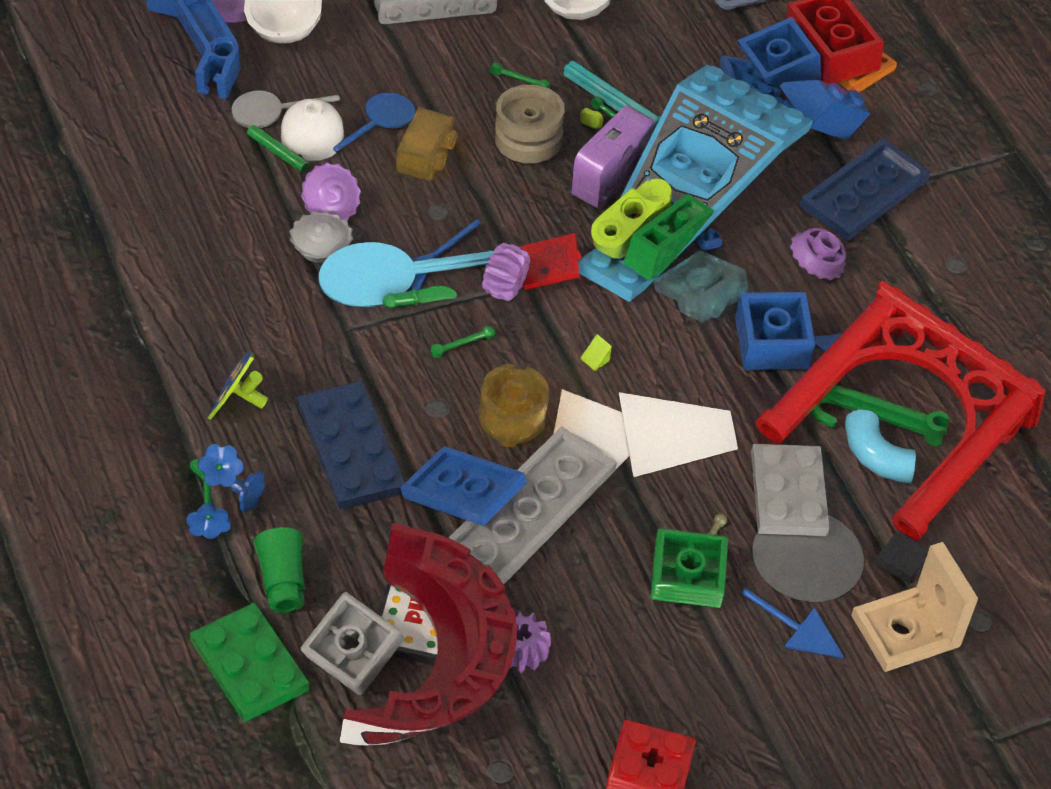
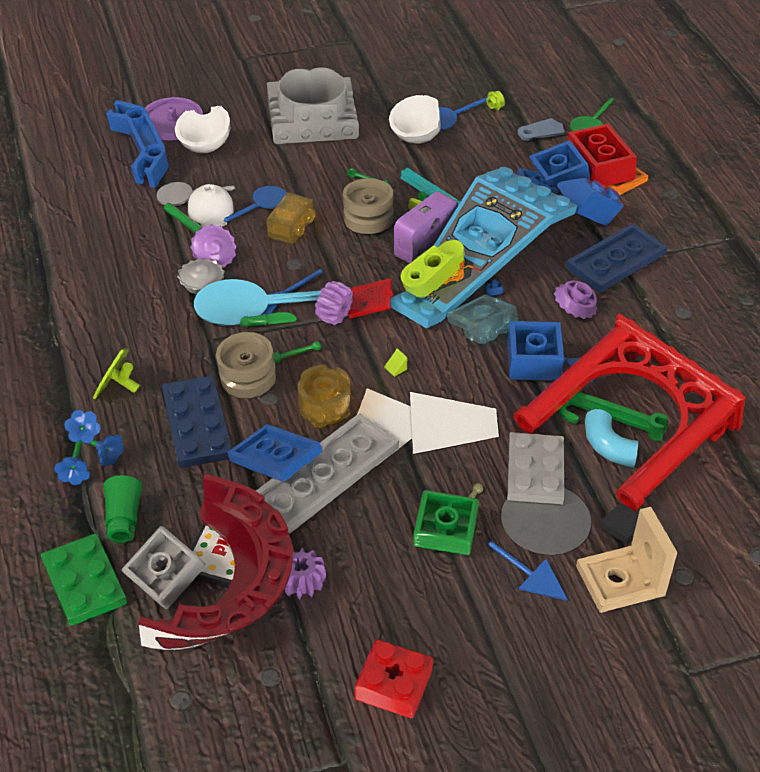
camera: 10 degrees right, 5 degrees down
(405, 365) = (246, 365): none -> dark tan wheel
(666, 236) = (456, 281): green slope -> none

